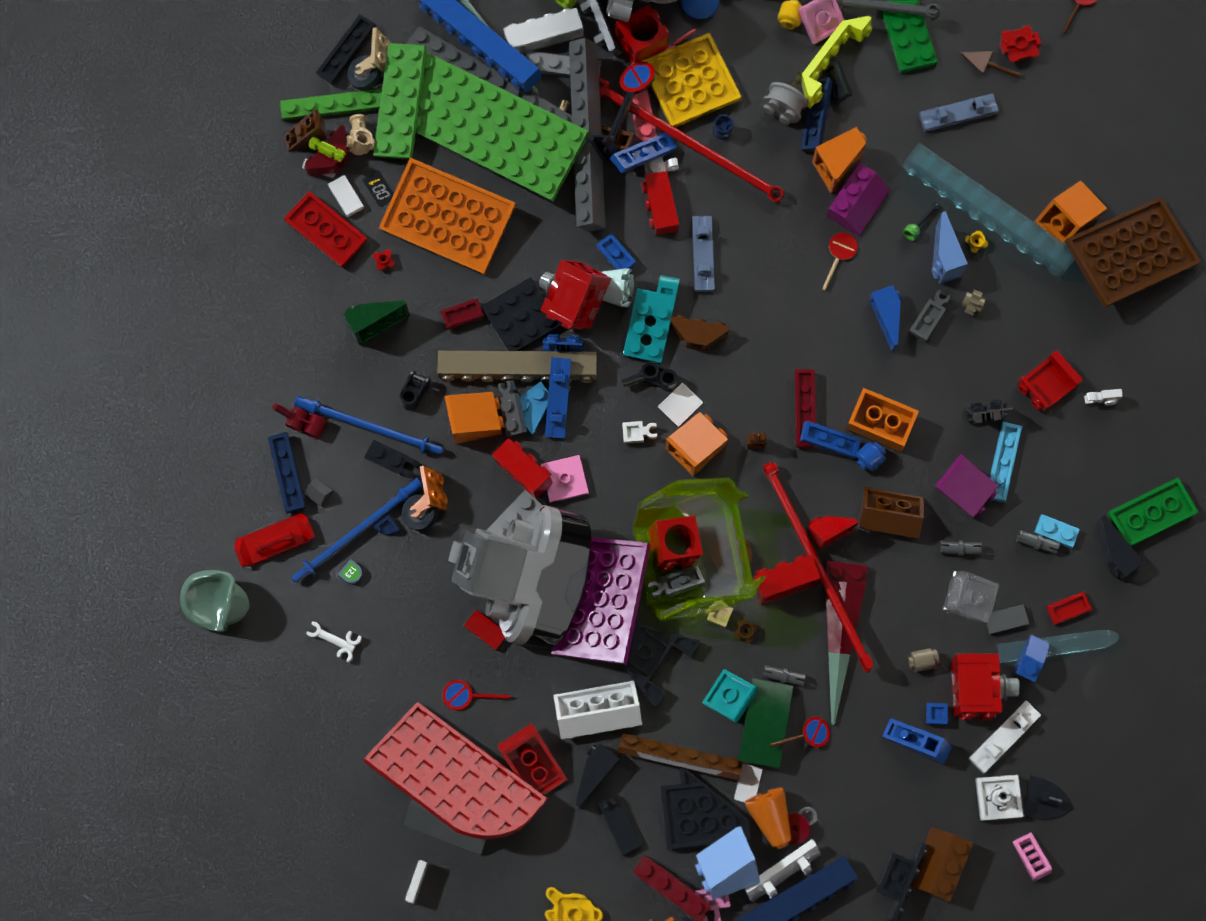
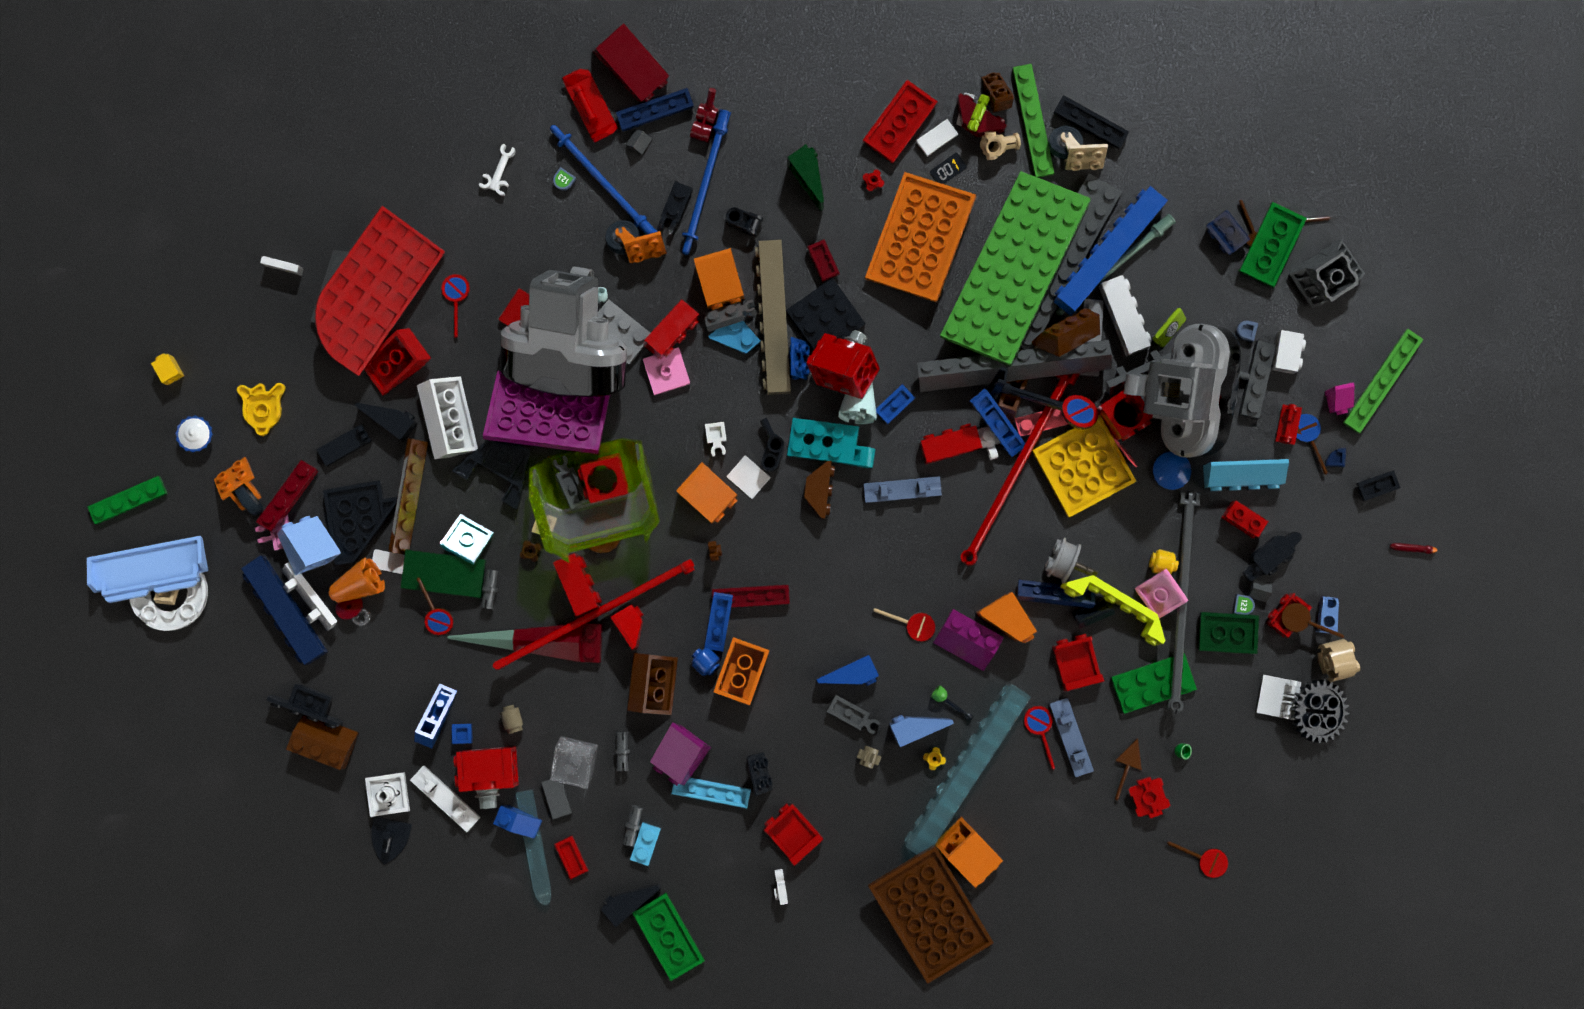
camera: 85 degrees right, 10 degrees up
(213, 600) = (526, 55): sand green piece -> none
(234, 492) = (631, 63): none -> dark red slope
(386, 526) = (610, 208): dark blue tile -> none
(400, 101) = (1036, 179): bright green plate -> none
(558, 397) = (743, 358): blue hinge -> none
(559, 78) = (1069, 333): none -> reddish brown slope
(725, 123) = (1038, 503): dark blue wheel -> none
(886, 101) = (1077, 662): none -> red panel
(943, 142) = (1039, 721): none -> piece
(975, 11) = (1183, 751): none -> green hinge
(1026, 860) = (318, 829): bright pink slope -> none

